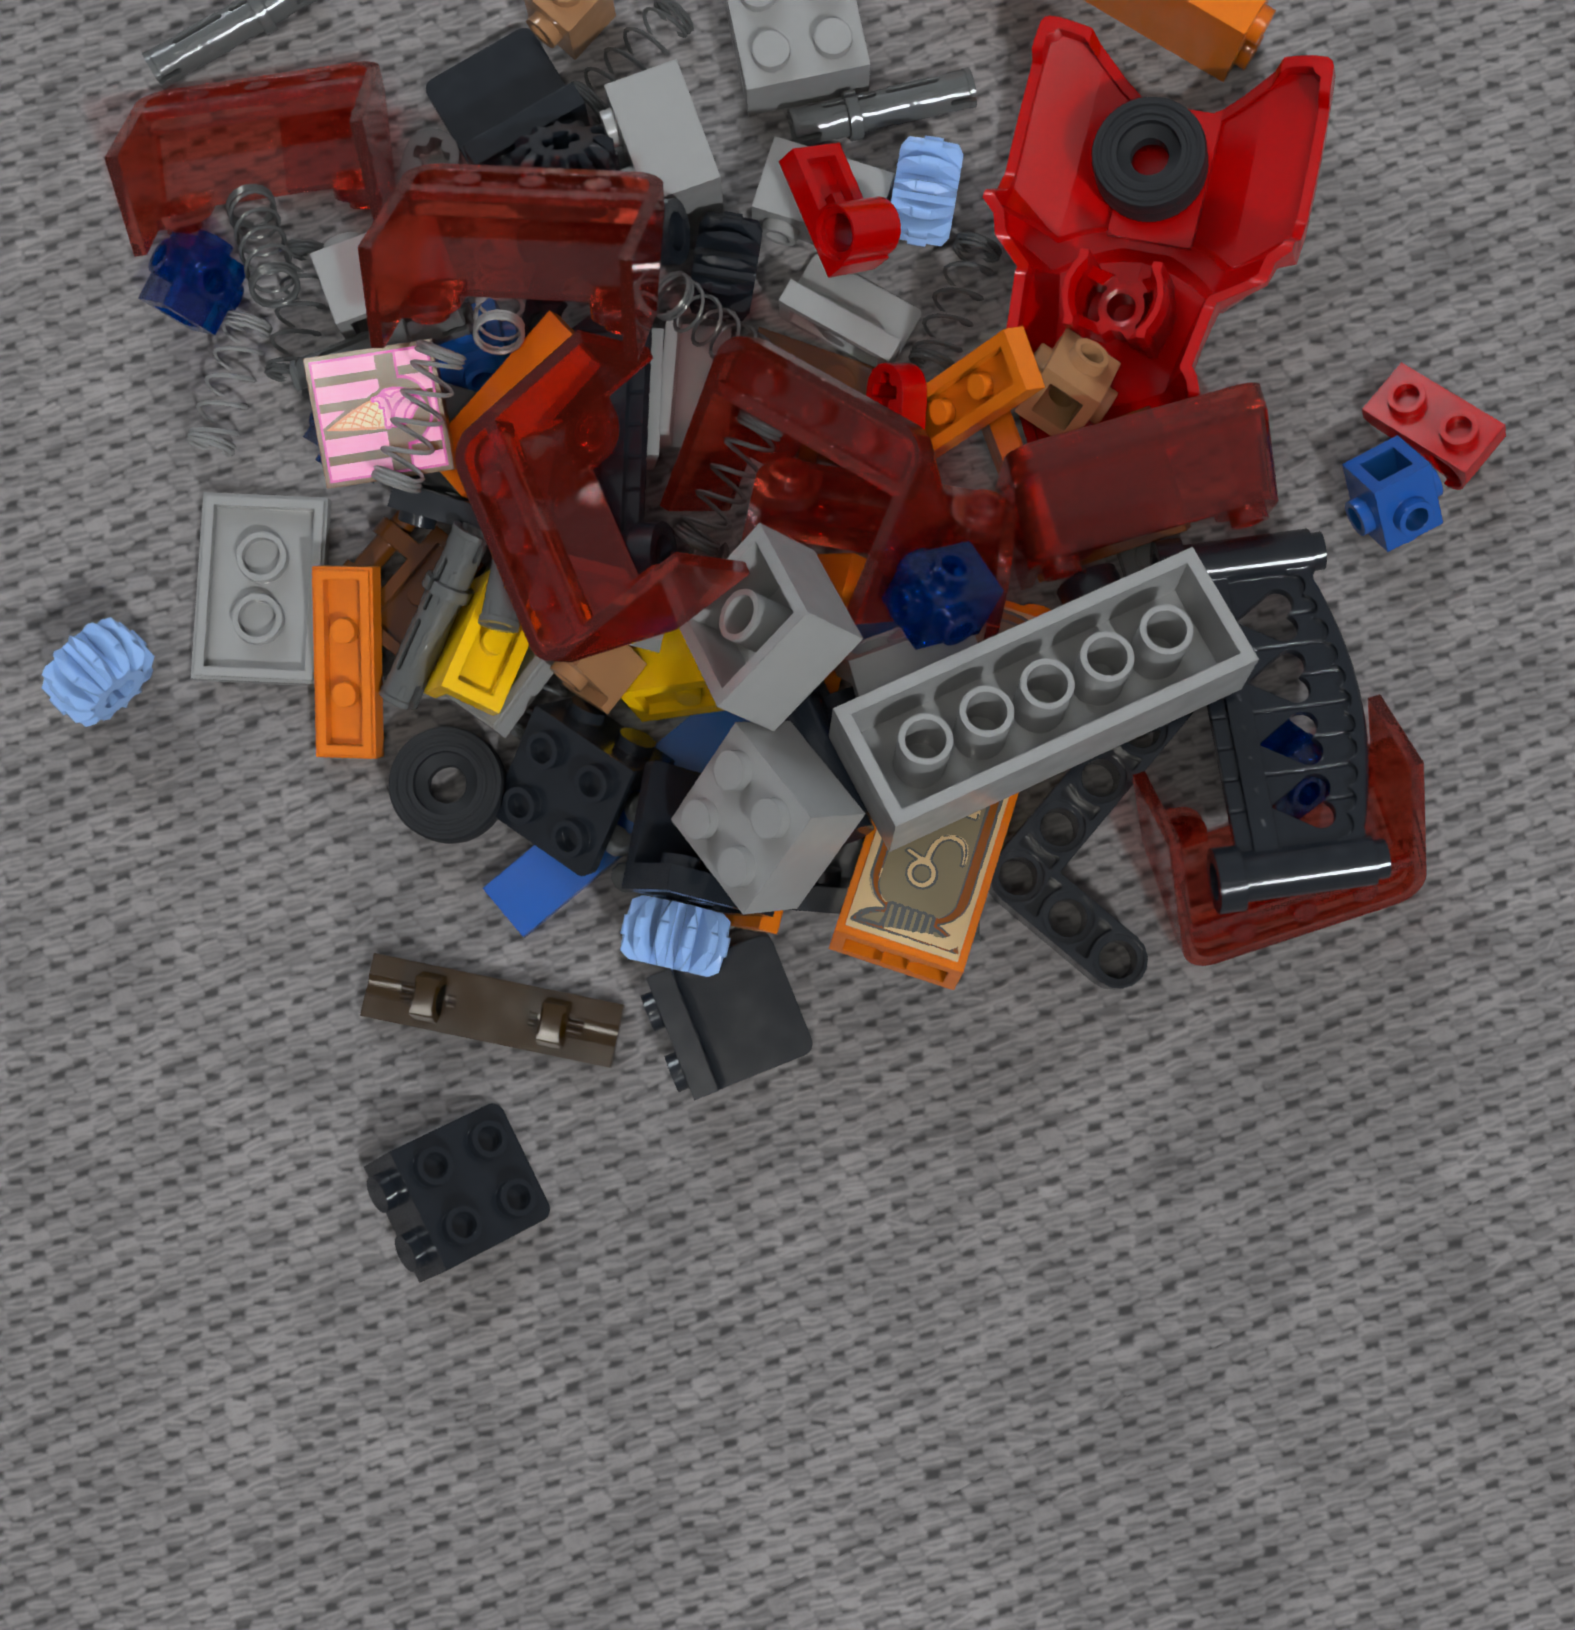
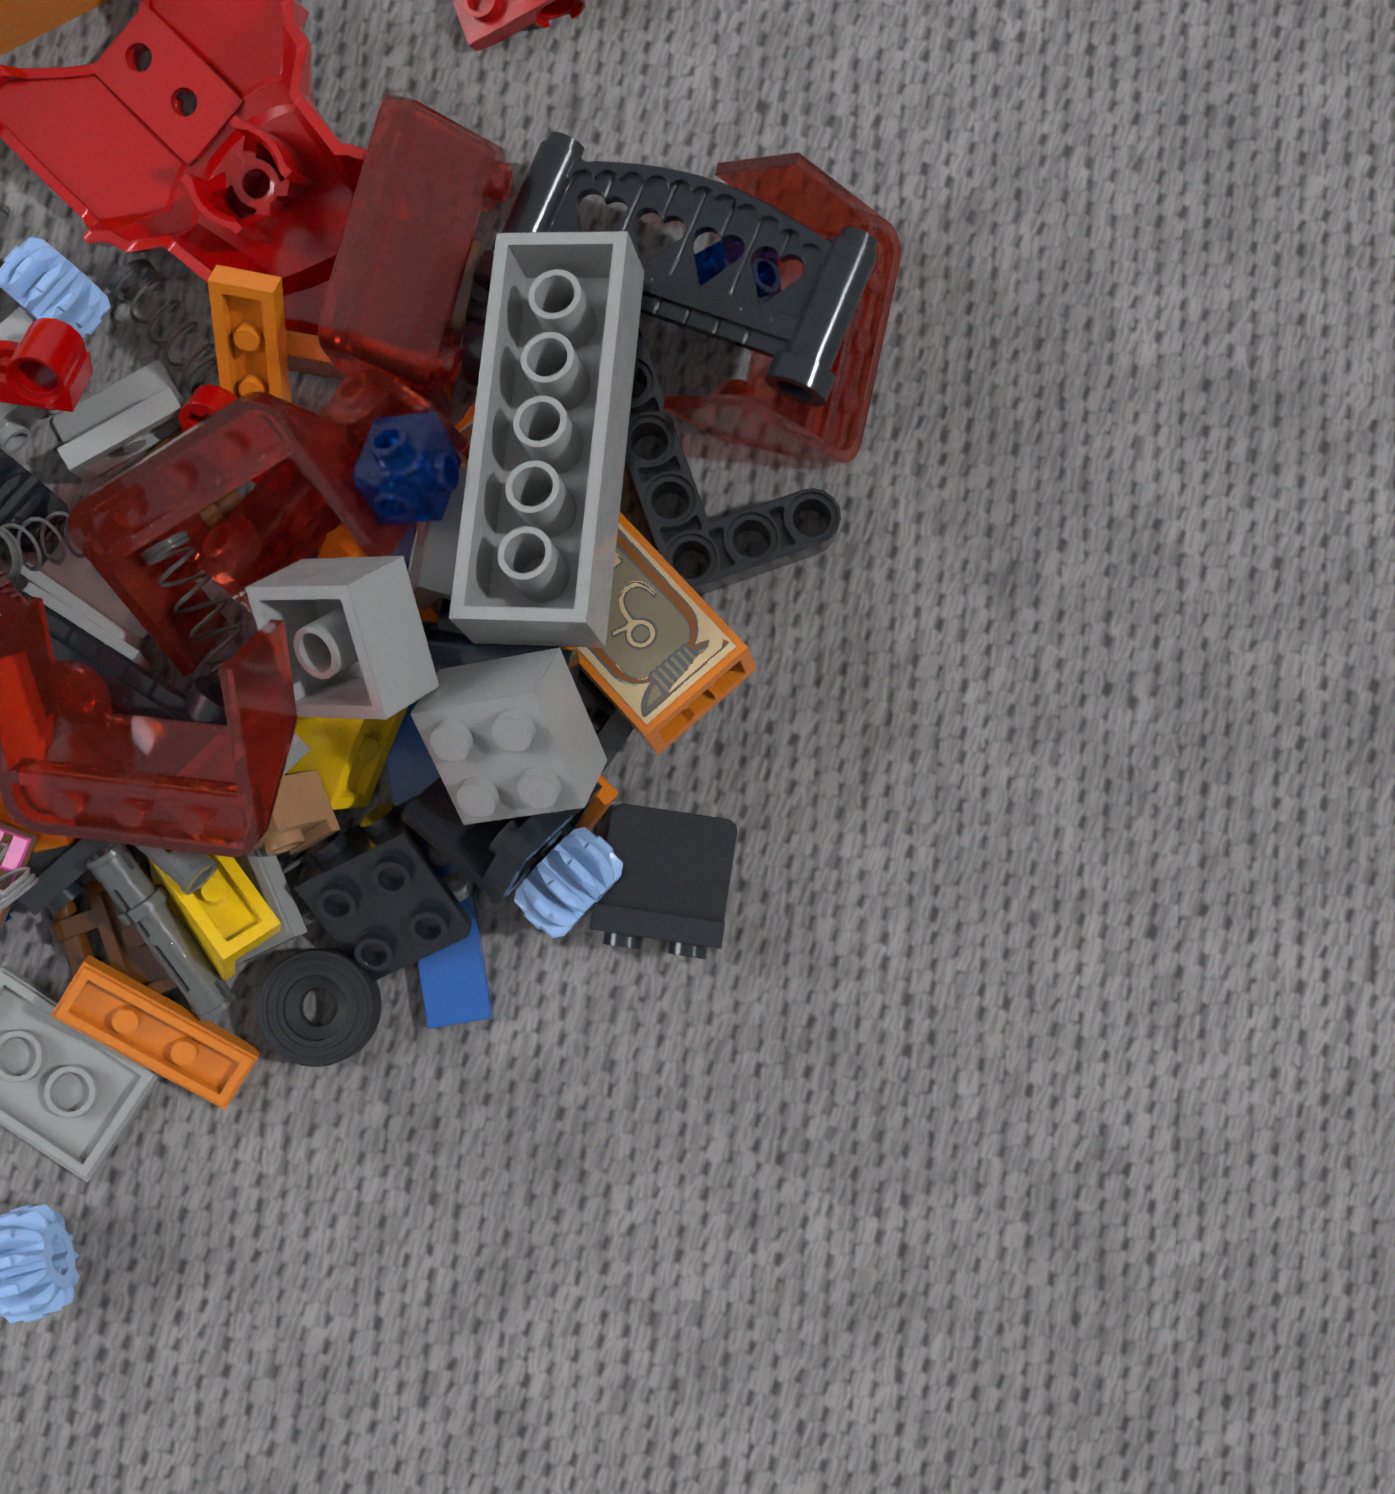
camera: 65 degrees left, 0 degrees up
(456, 1191) = (678, 1205): black bracket -> none
(493, 1010) = (539, 1082): dark brown hinge -> none
(1076, 385) = (300, 254): medium nougat brick -> none
(1142, 124) = (107, 78): black tyre -> none
(1392, 494) = (554, 58): blue brick -> none

